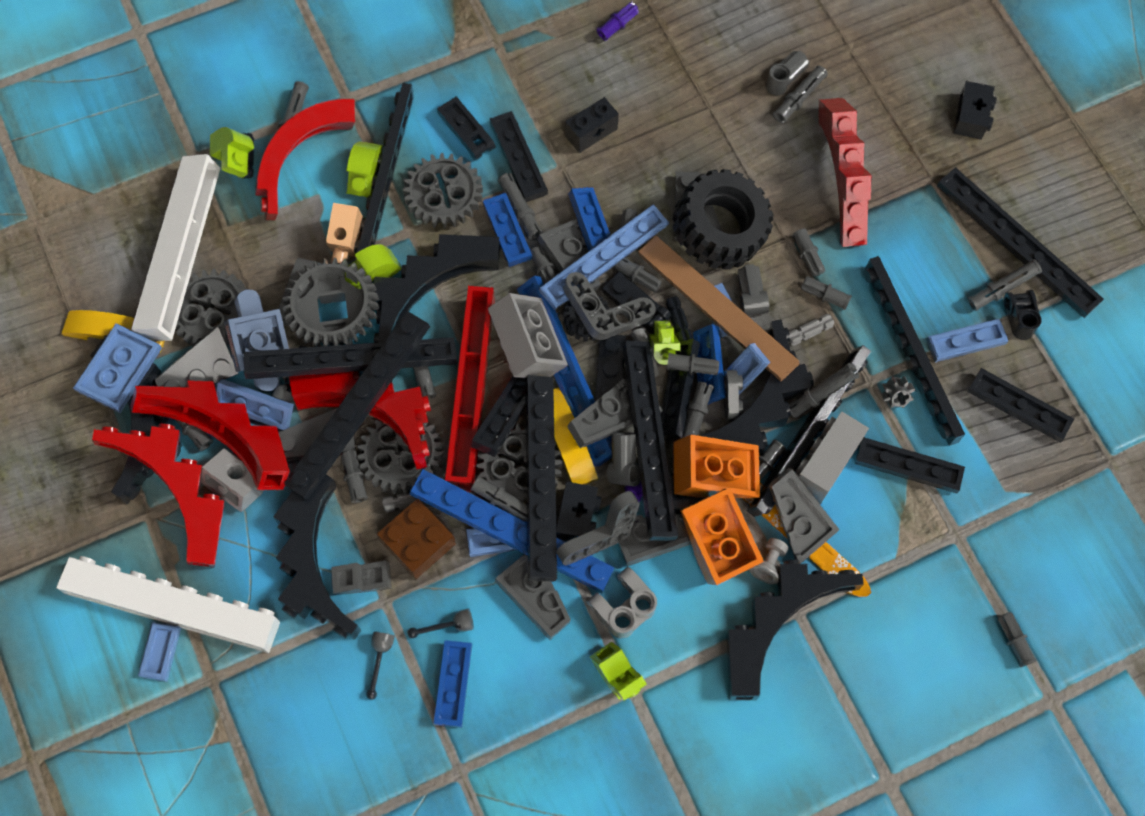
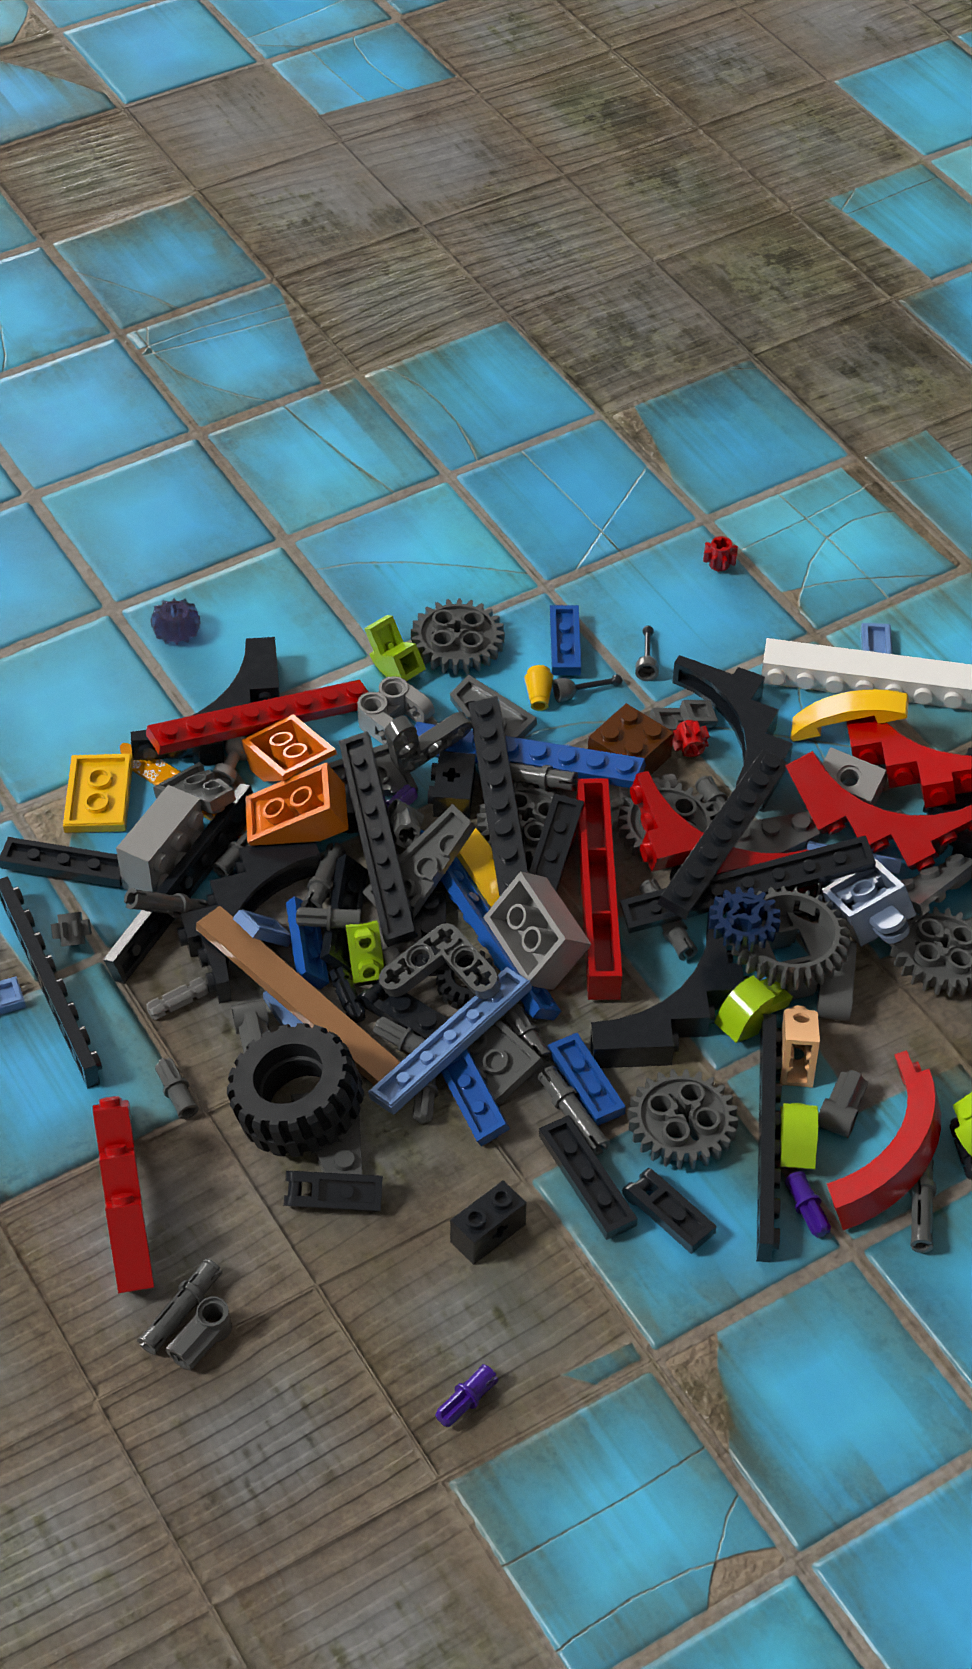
camera: 175 degrees right, 20 degrees down
(214, 540) = (848, 706): none -> yellow slope
(270, 789) = (720, 553): none -> red gear
(327, 187) = (841, 1109): none -> dark grey piece
(361, 543) = (690, 738): none -> red gear
(365, 284) = (744, 919): none -> dark blue gear
(369, 122) = (808, 1204): none -> dark purple axle
(486, 624) = (539, 686): none -> yellow cone
(552, 722) = (458, 636): none -> dark grey gear
(695, 158) = (334, 1190): none -> black plate
(732, 405) = (277, 904): dark grey plate -> none
(745, 589) = (254, 717): none -> red plate
(820, 750) = (175, 621): none -> clear purple gear
(826, 292) = (153, 1040): dark grey axle -> none
(886, 541) = (98, 793): none -> yellow tile

